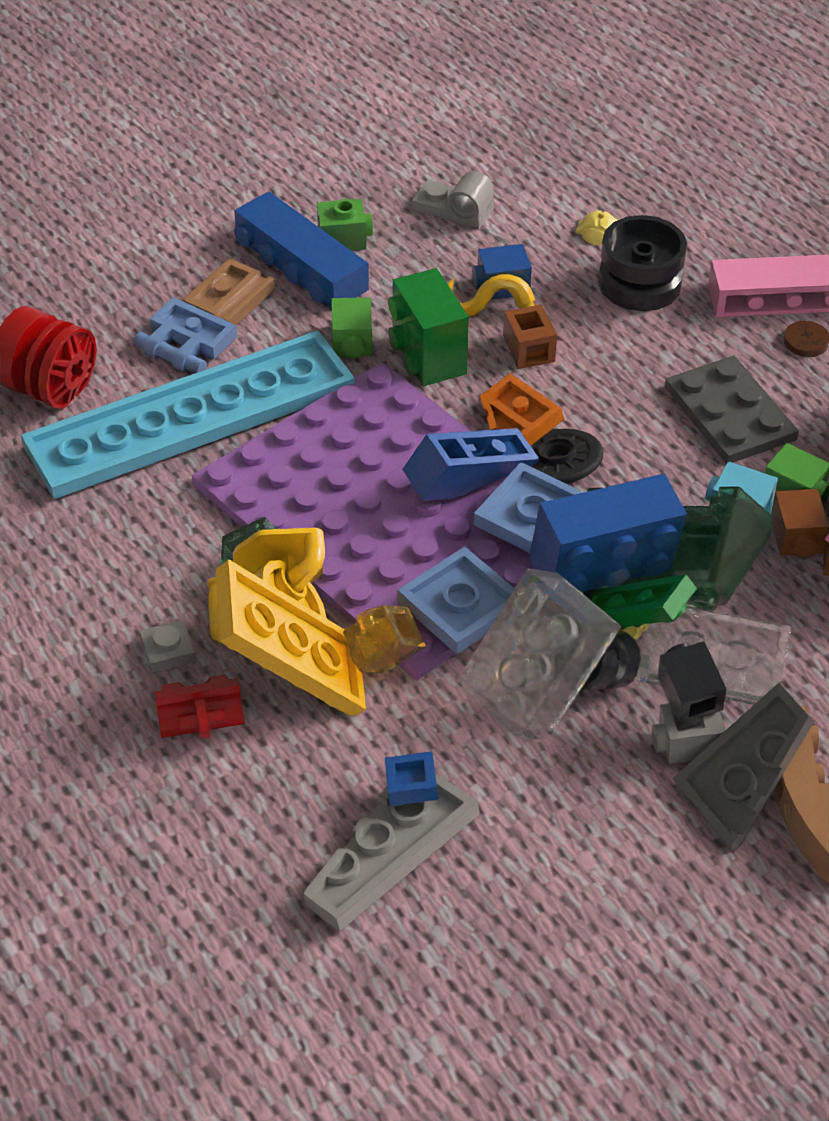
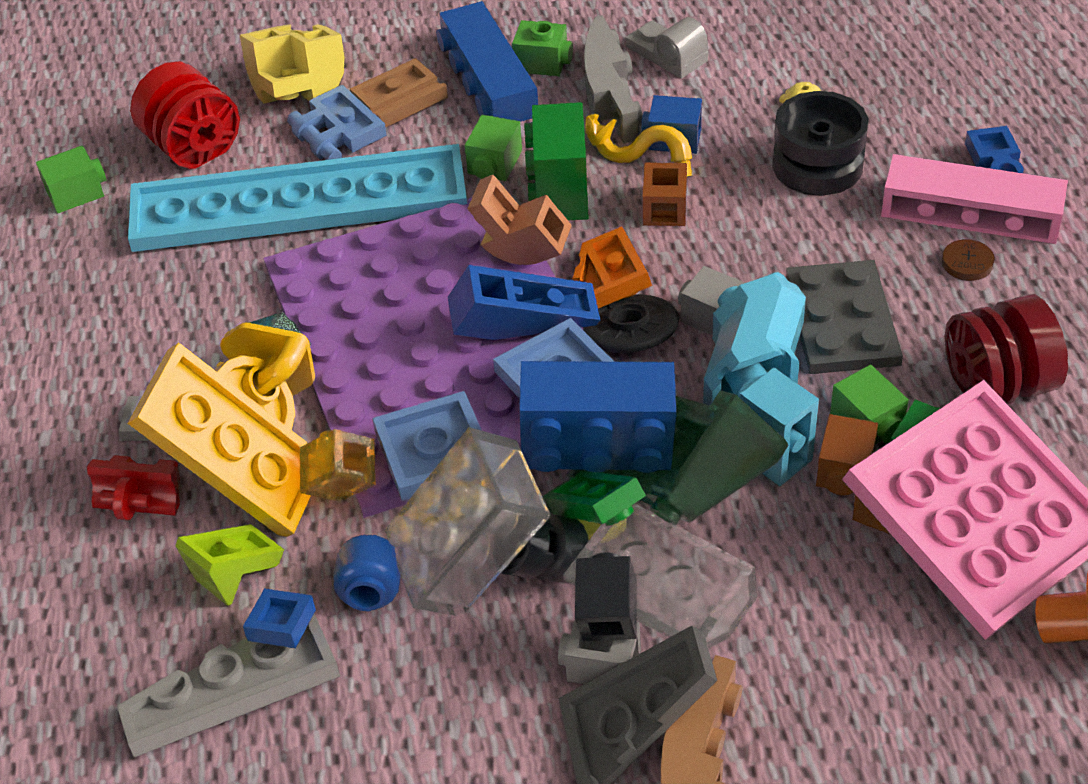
camera: 25 degrees right, 0 degrees up
(116, 285) = (293, 61): none -> light yellow brick
(324, 746) = (224, 555): none -> lime slope
(416, 244) = (607, 80): none -> light grey slope
(430, 397) = (514, 231): none -> nougat brick
(457, 722) = (366, 573): none -> blue head
(623, 422) = (700, 298): none -> light grey brick
(685, 442) = (754, 333): none -> medium azure brick
(783, 239) = (994, 149): none -> blue plate

